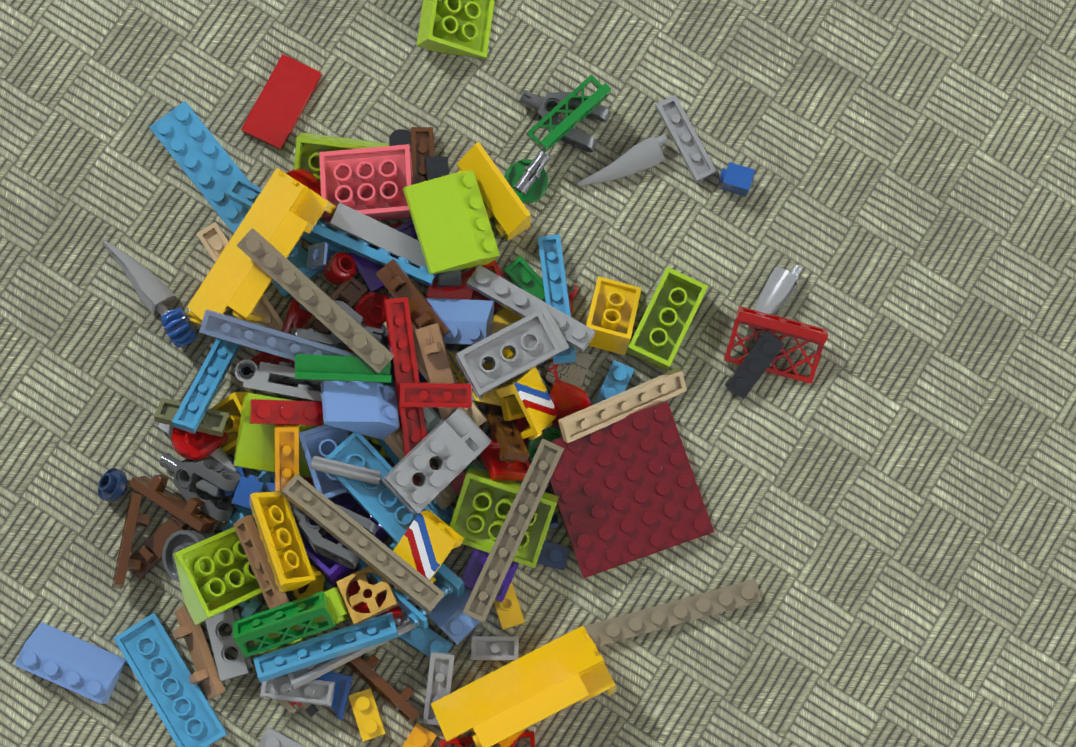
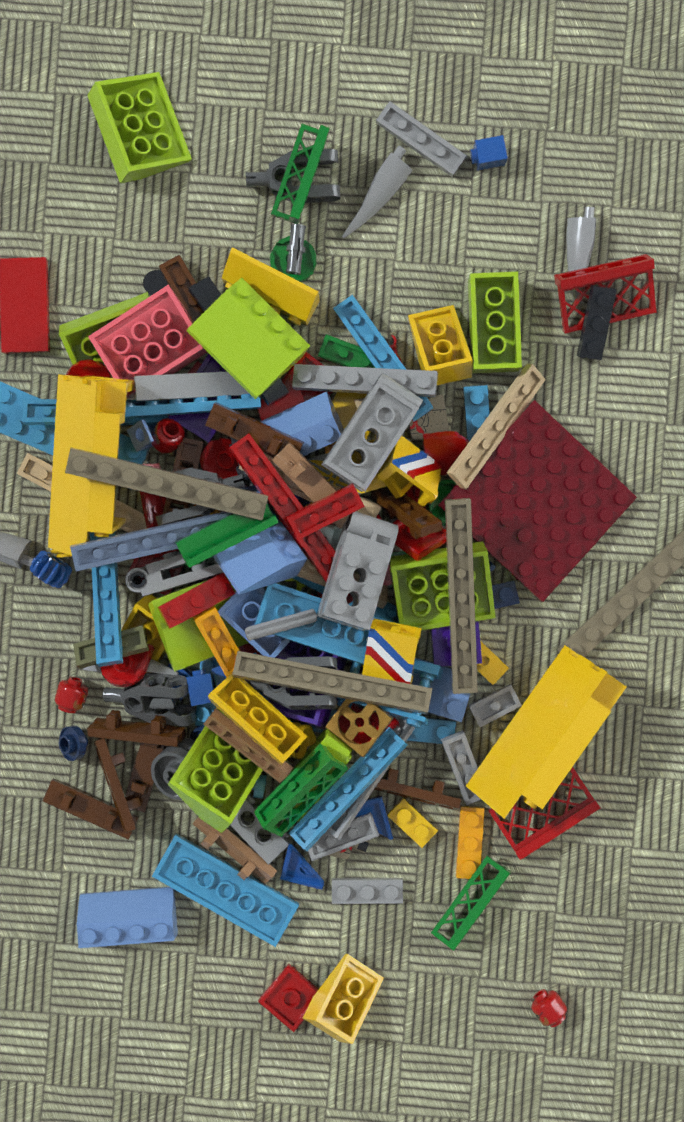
camera: 35 degrees left, 10 degrees up
(92, 549) = (86, 807): none -> reddish brown hinge
(134, 443) = (71, 695): none -> red head
(243, 702) = (299, 871): none -> blue tile

